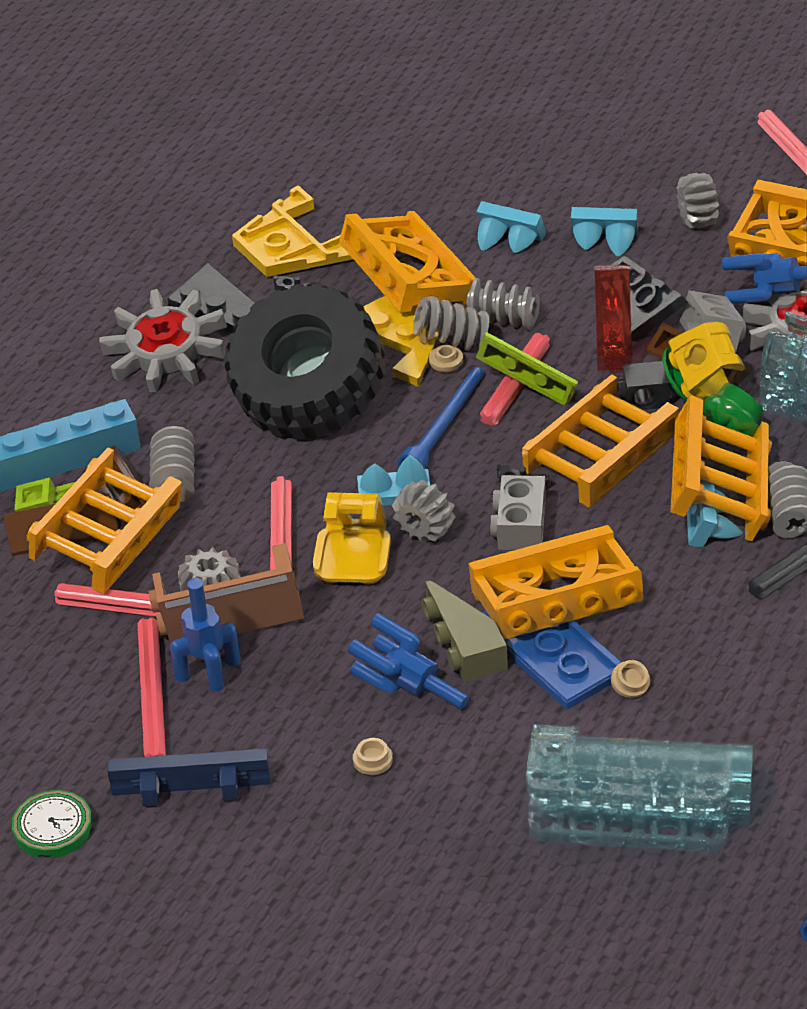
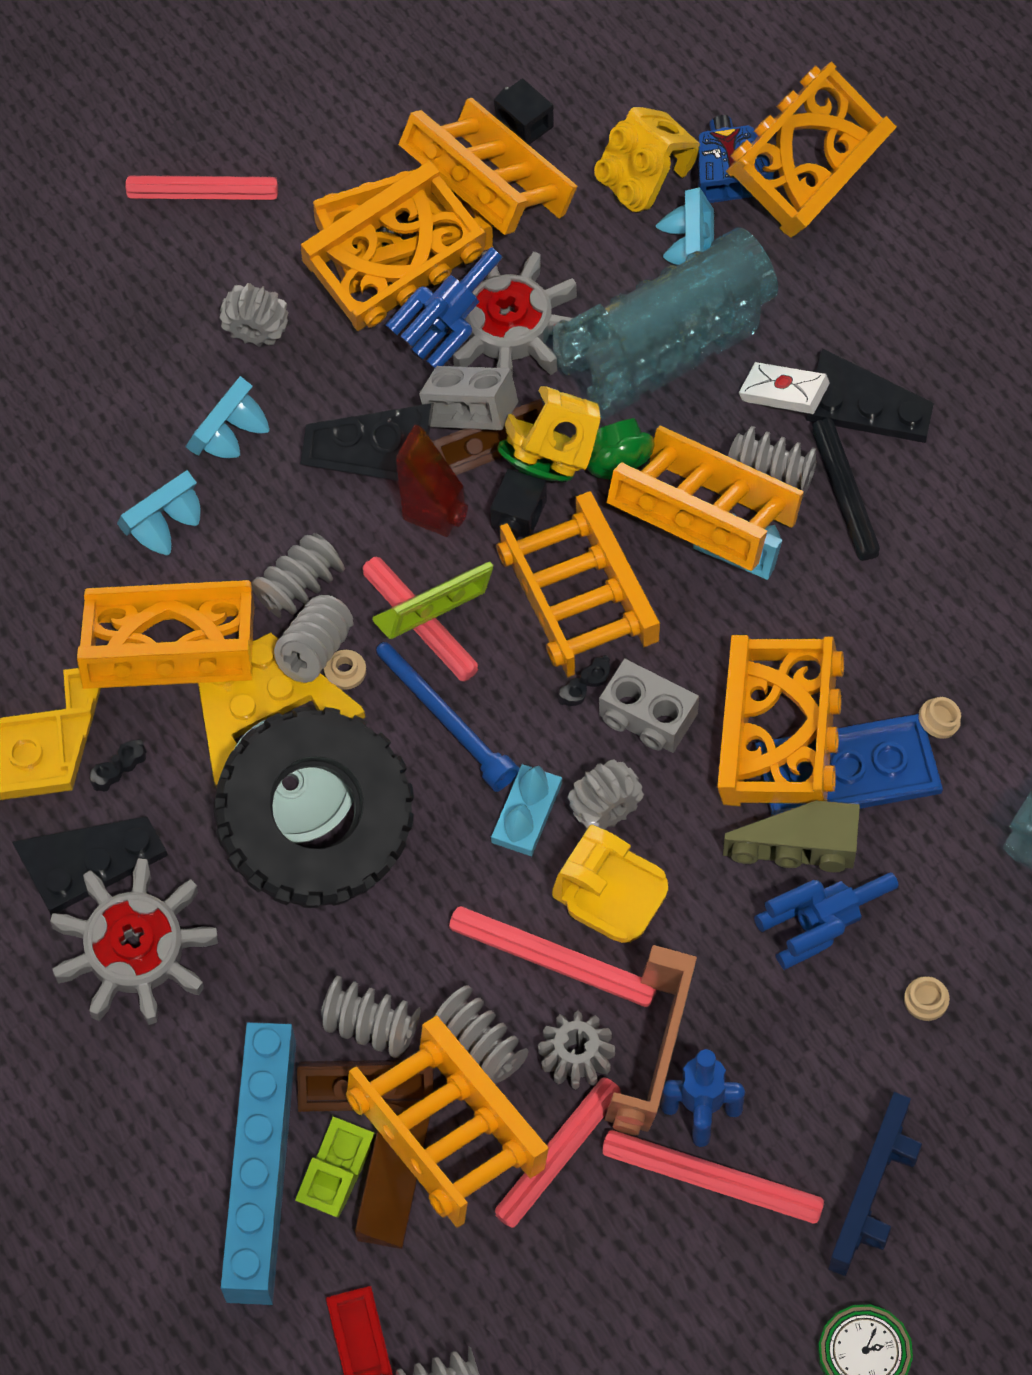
camera: 65 degrees left, 20 degrees up
(189, 521) = (478, 1038): none -> light grey piece

